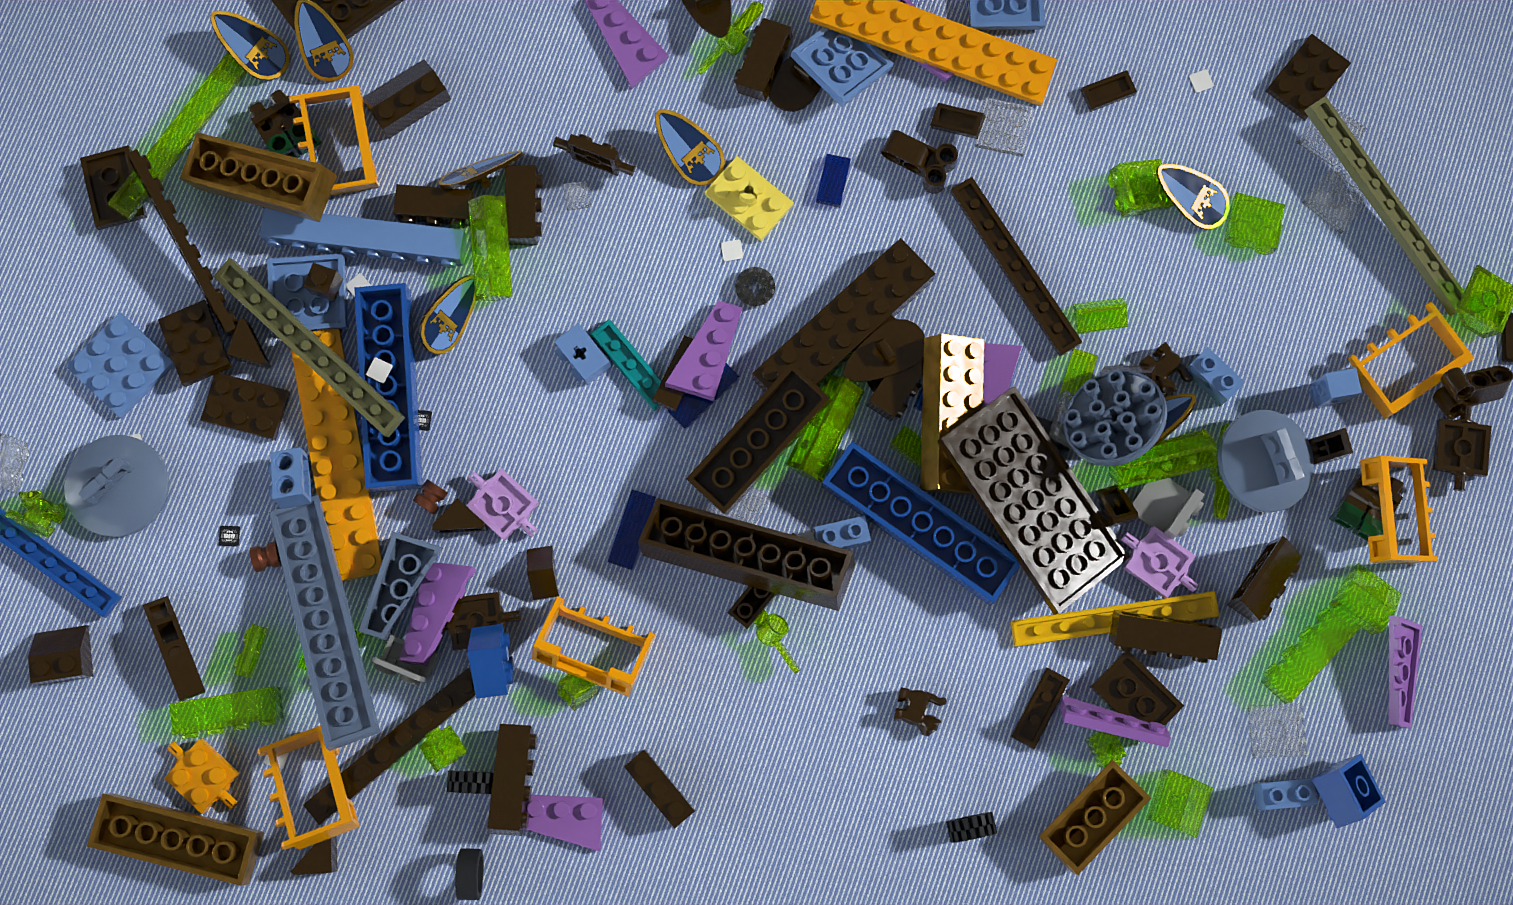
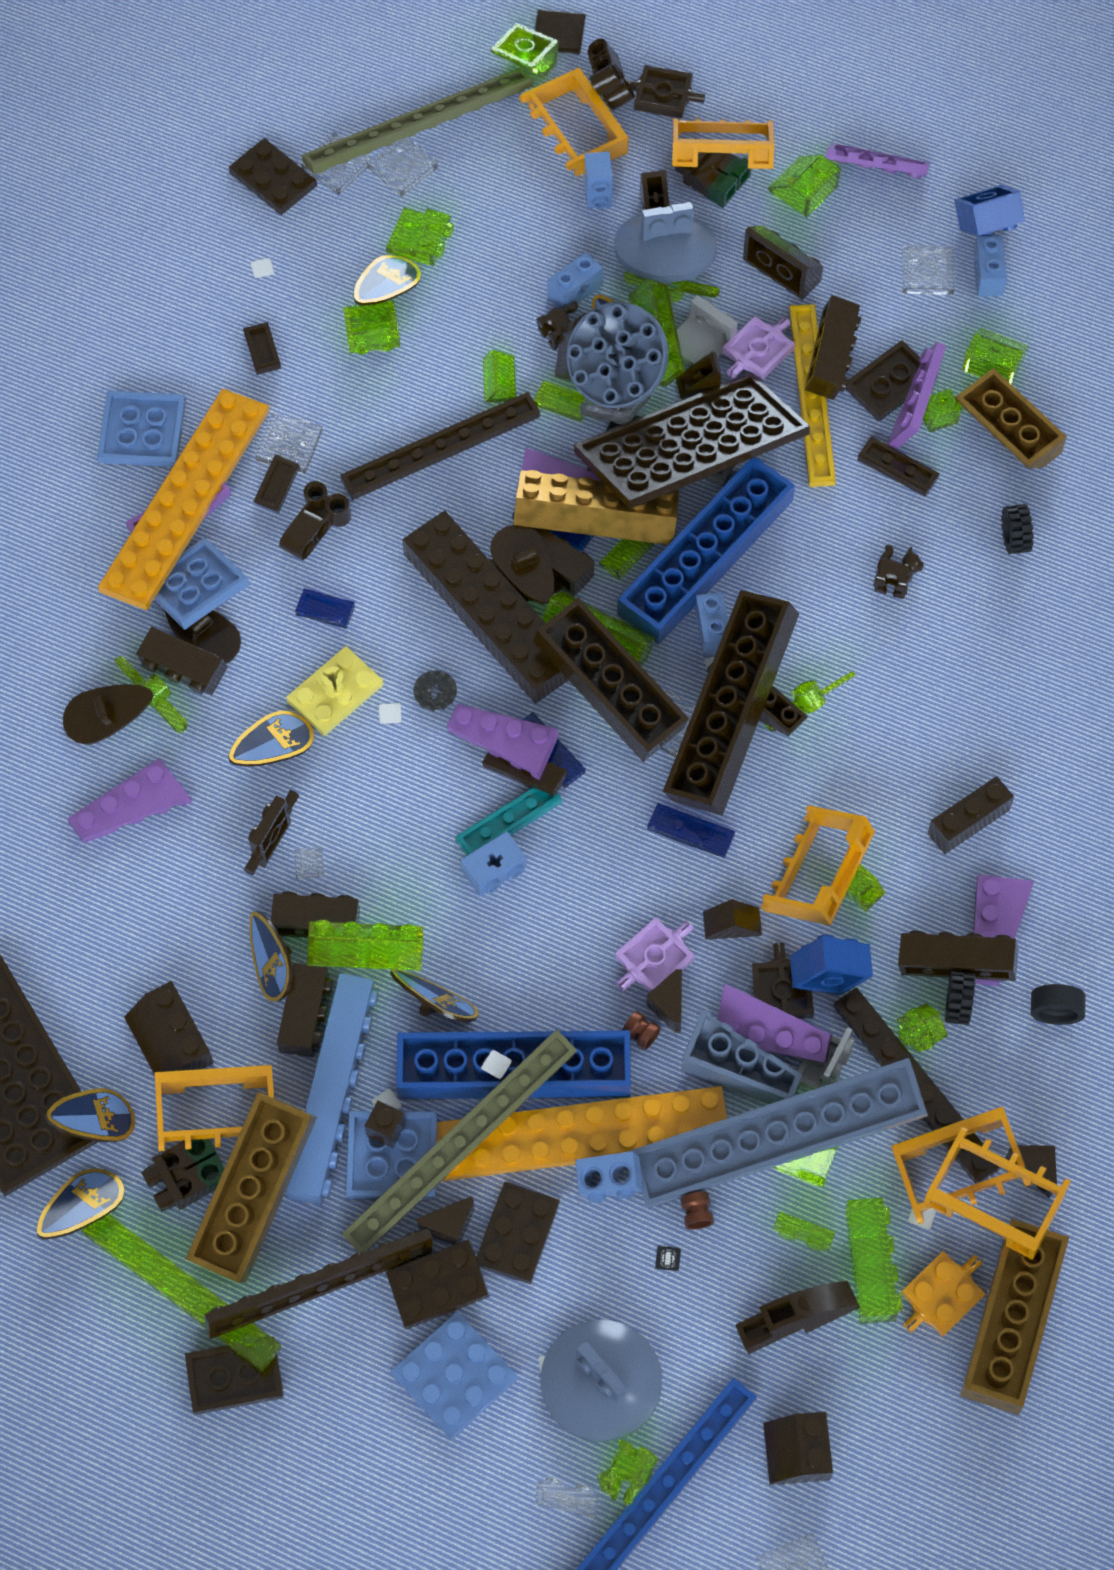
camera: 85 degrees left, 15 degrees down
(229, 832) = (948, 1204): none -> light orange hinge
(1310, 654) = (856, 233): clear neon green brick -> none

